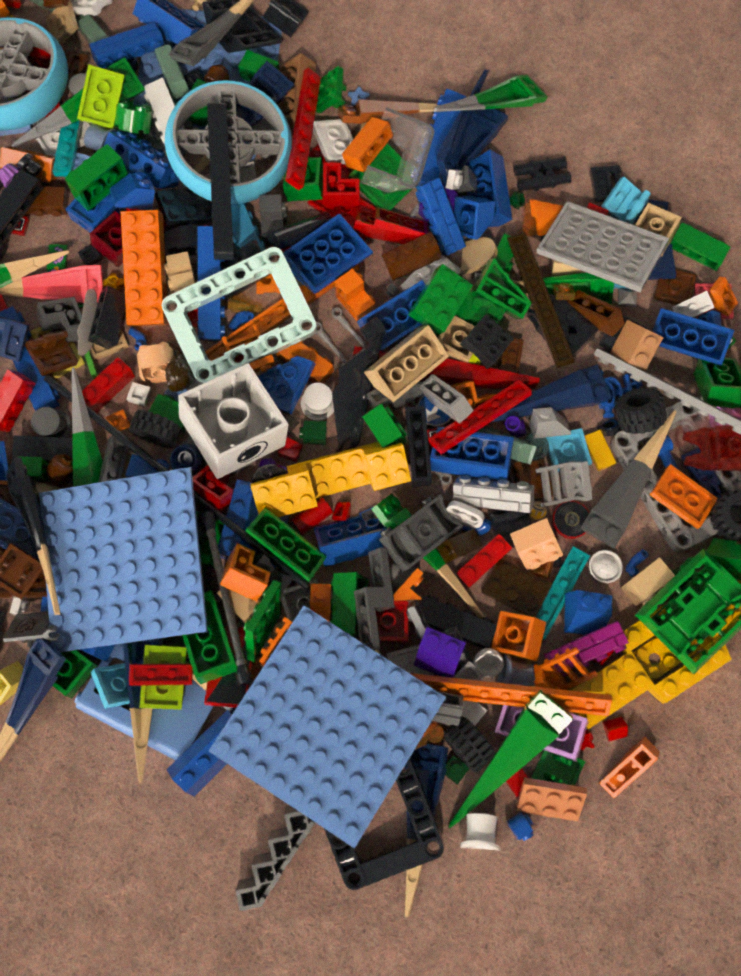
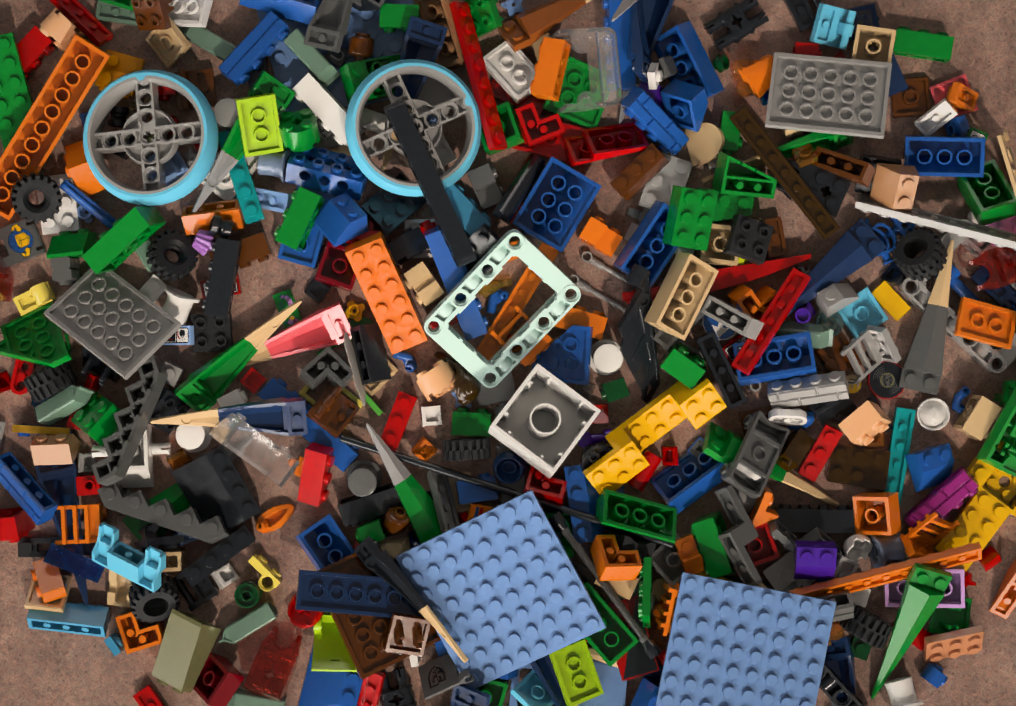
camera: 20 degrees left, 15 degrees up
(160, 674) = (574, 673): red tile -> none

